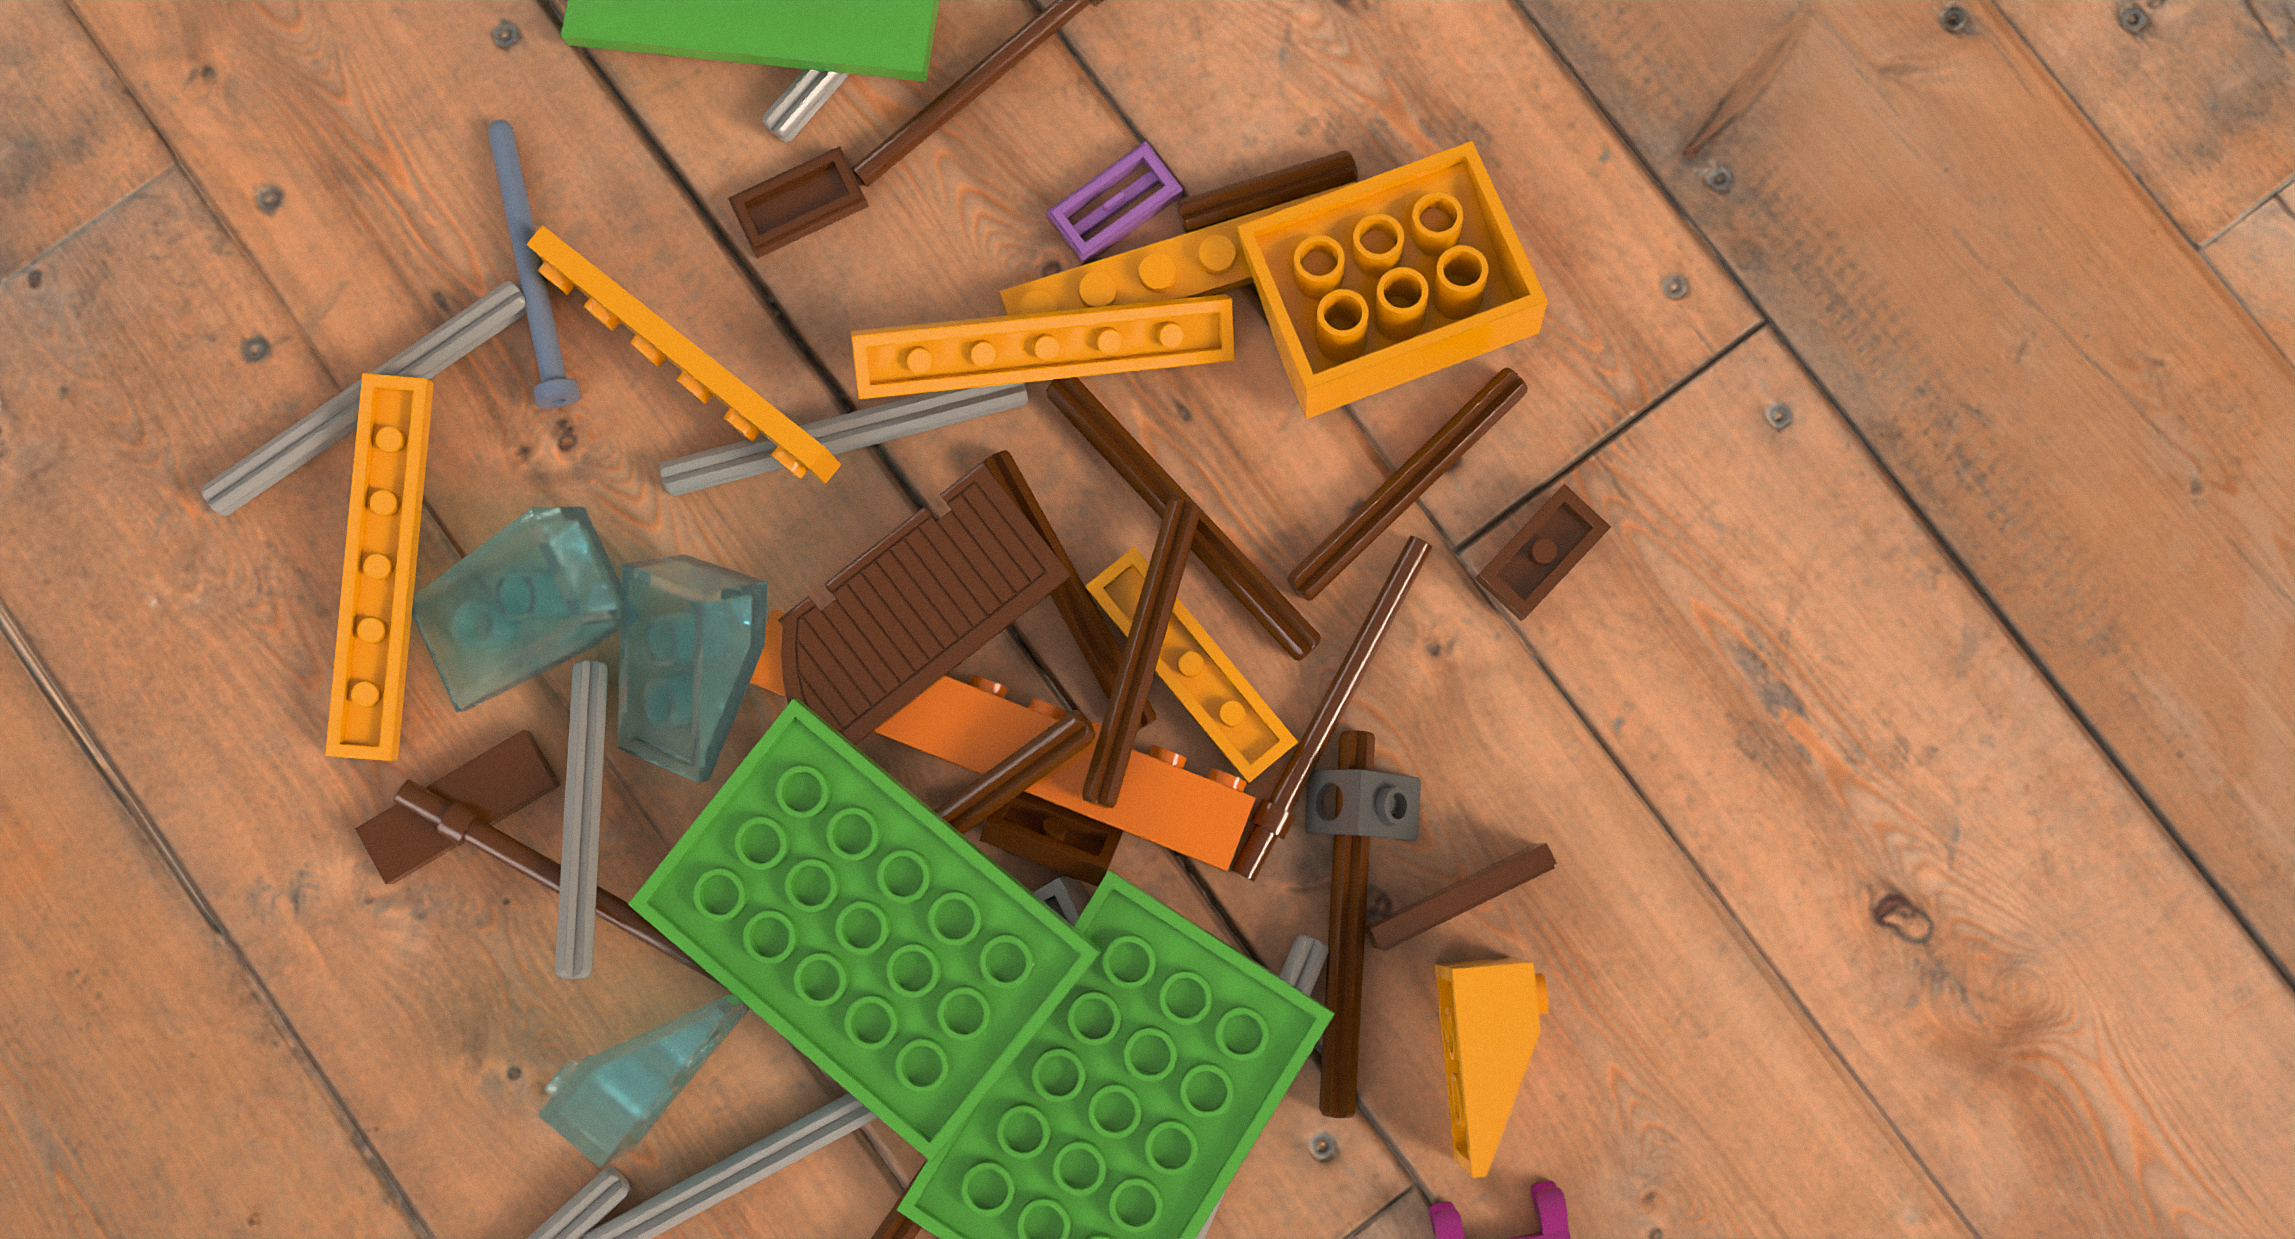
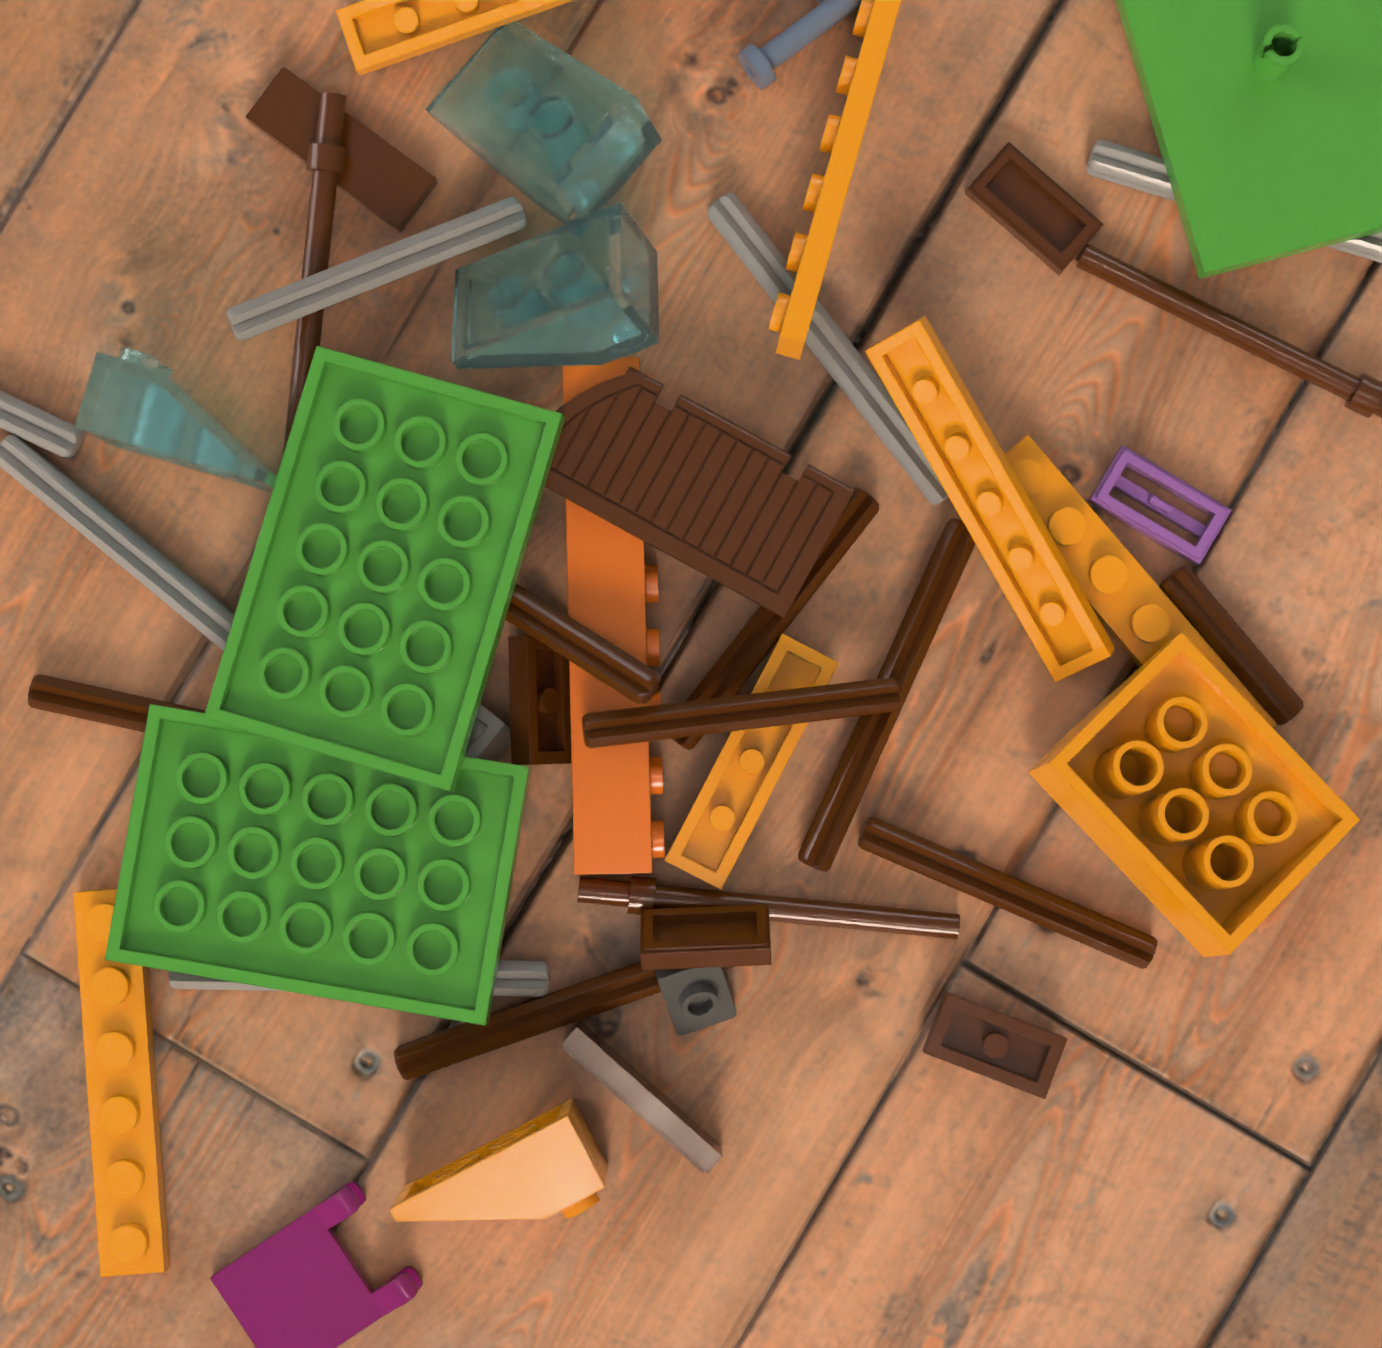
camera: 65 degrees right, 5 degrees up
(1336, 773) = (705, 937): none -> reddish brown tile

